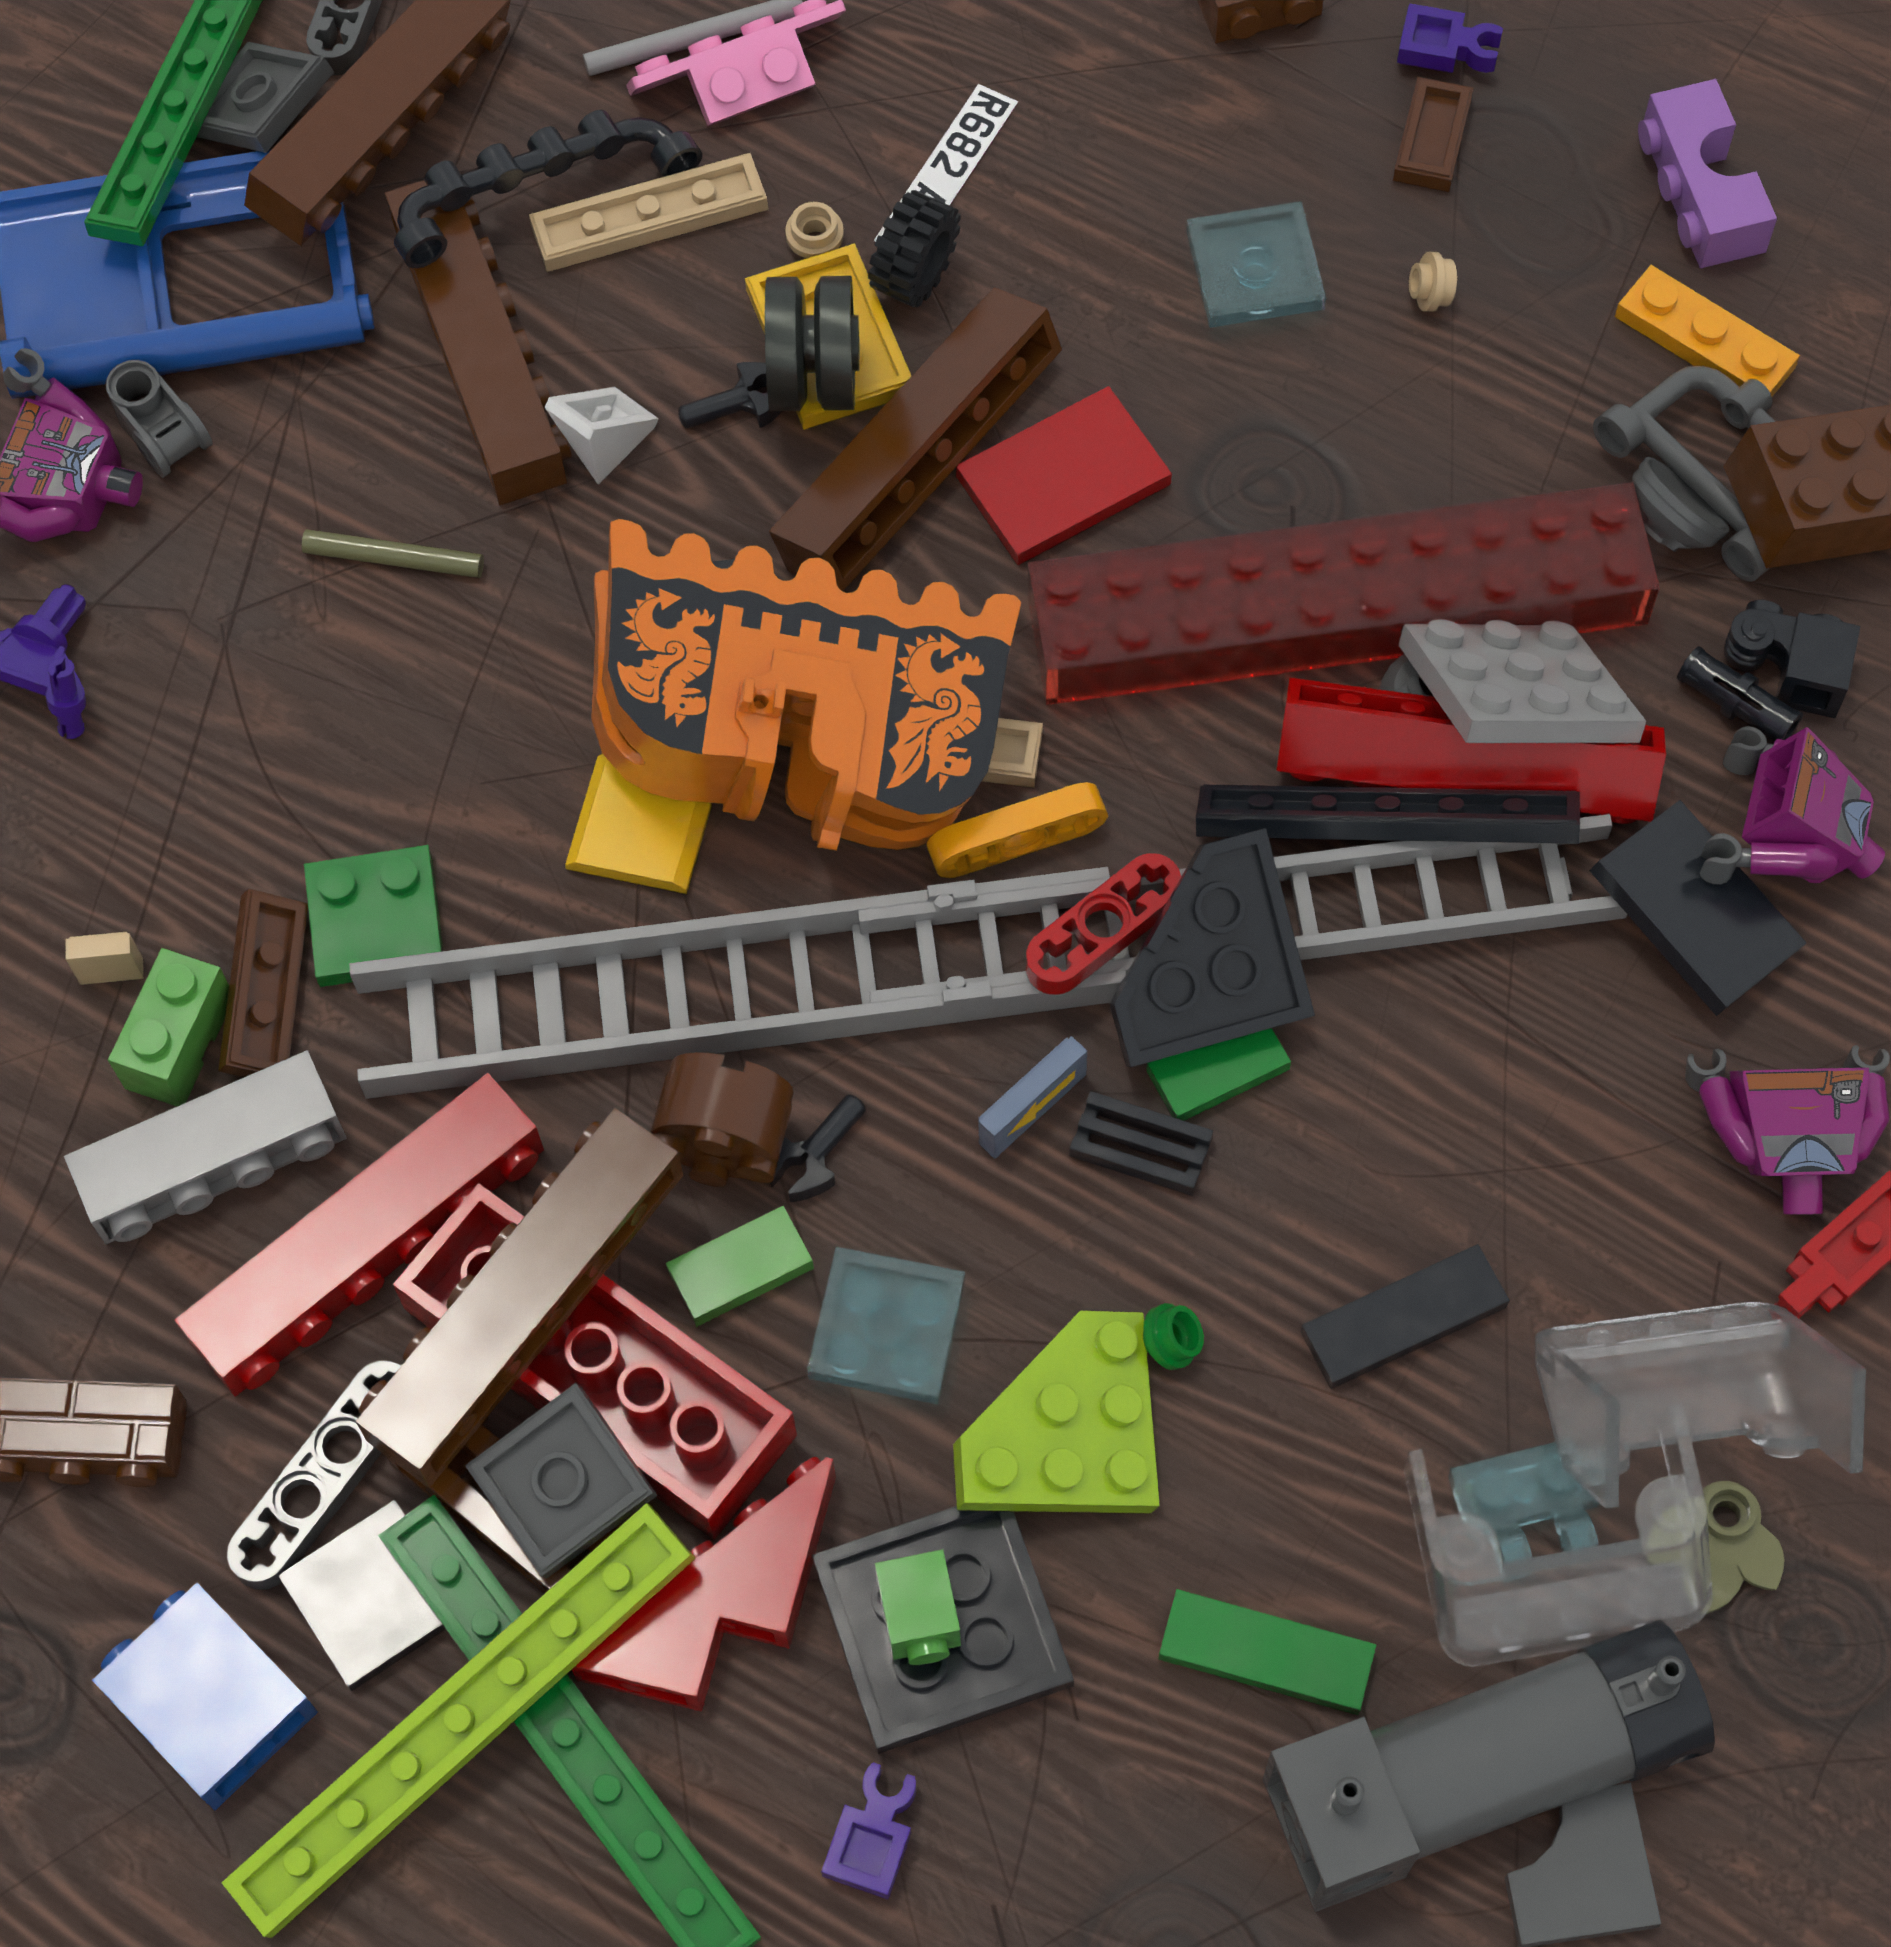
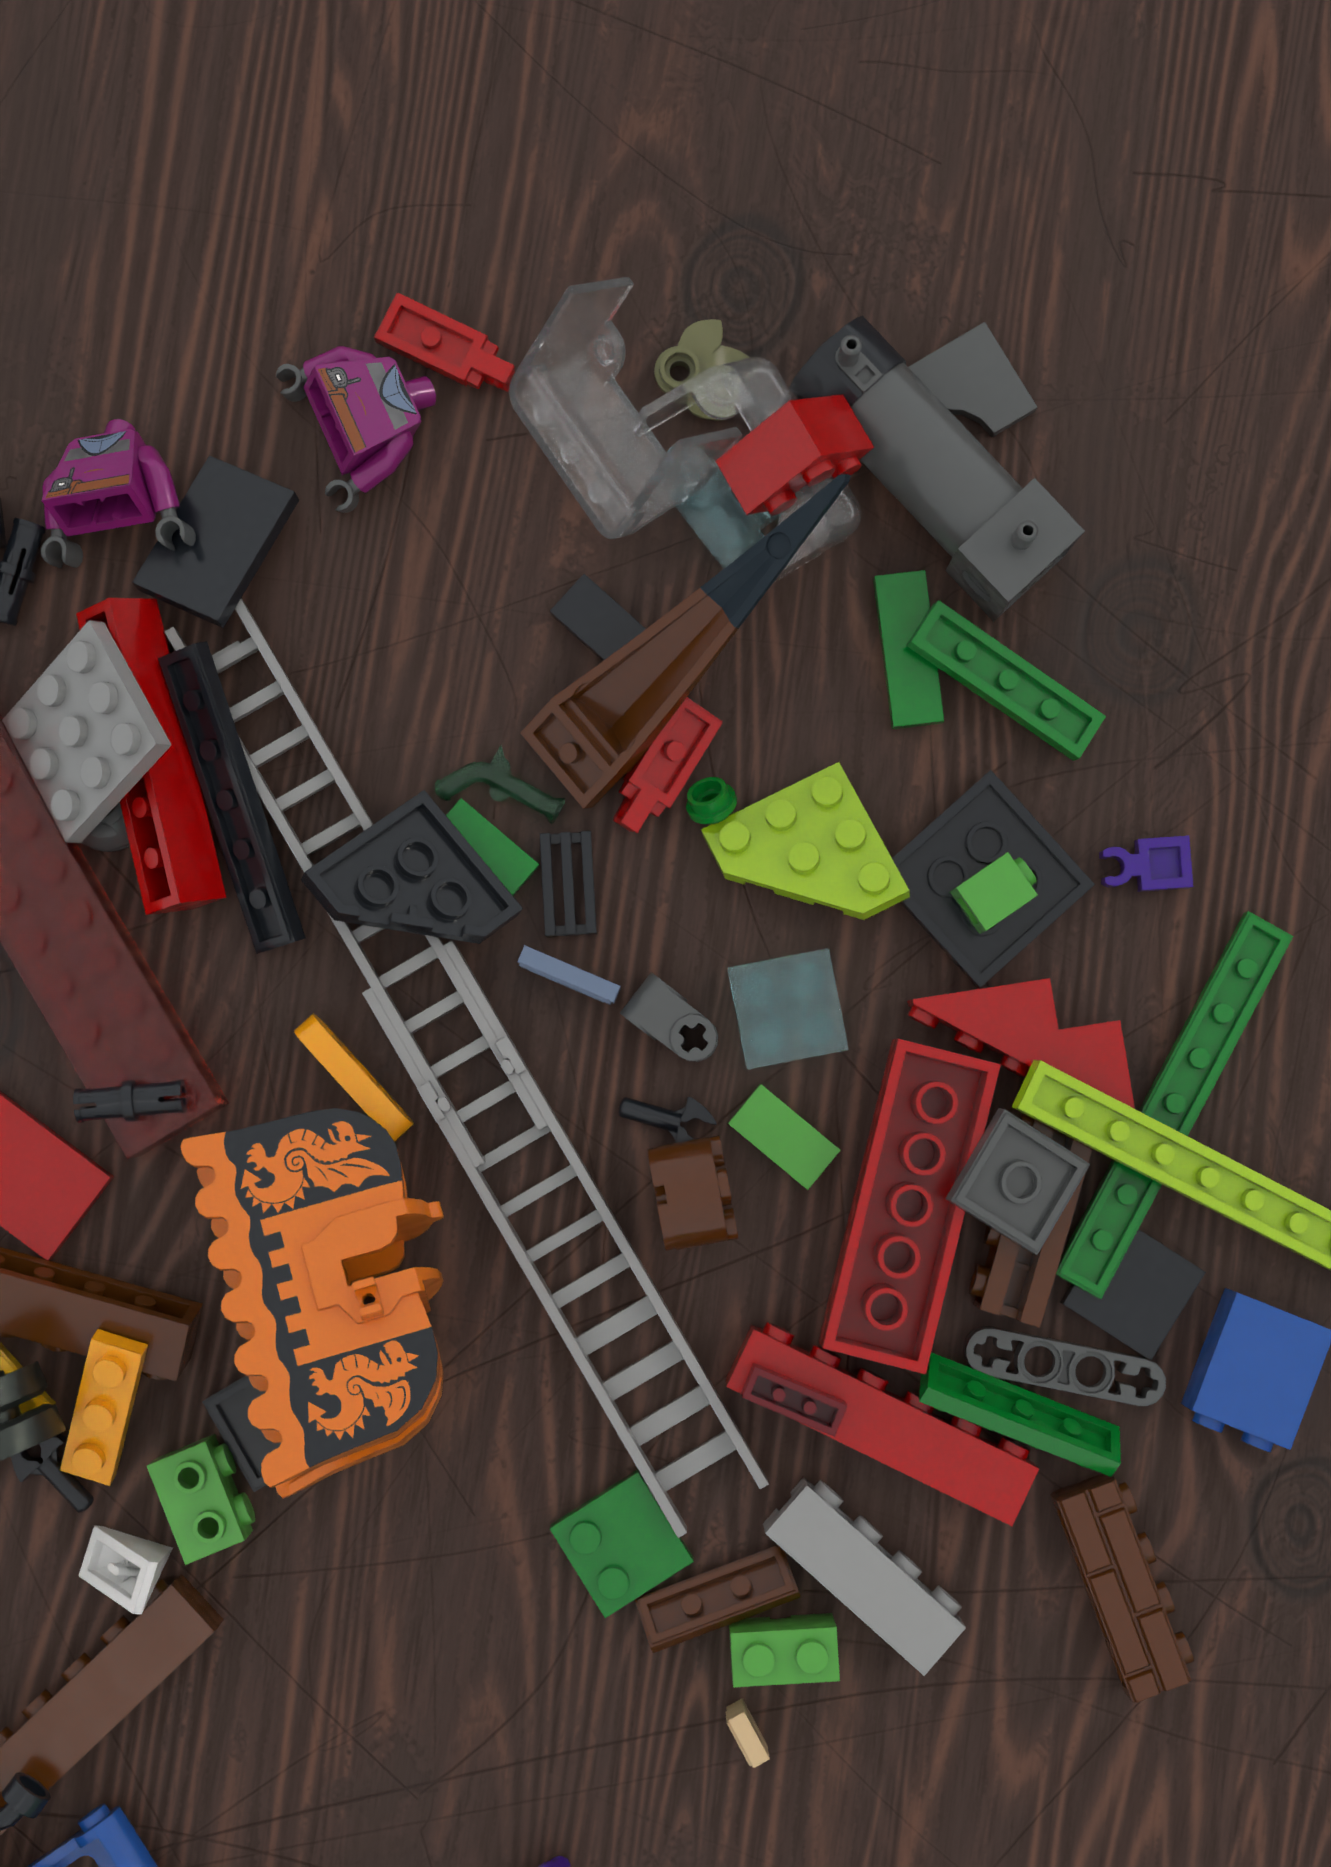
camera: 120 degrees left, 20 degrees up
(292, 1389) = (1021, 1415): none -> green plate
(392, 553) = (305, 1684): olive bar -> none
(437, 1131) = (794, 1399): none -> dark red piece
(519, 1296) = (904, 1270): brick -> none
(636, 833) = (476, 1372): yellow tile -> none
(657, 501) = (202, 1498): none -> bright green brick
(776, 458) = (103, 1407): none -> light orange plate
(937, 1183) = (664, 1015): none -> dark grey piece
(1015, 753) = (282, 1103): tan tile -> none
(1057, 937) = (389, 943): red beam -> none
(1087, 577) = (130, 1100): none -> black pin
(1177, 1746) = (1006, 680): none -> green plate
(1242, 1304) = (666, 765): none -> red hinge
(1287, 1116) = (501, 785): none -> clear green piece
(1327, 1265) = (620, 706): none -> reddish brown plate
(1562, 1563) = (794, 449): none -> red brick

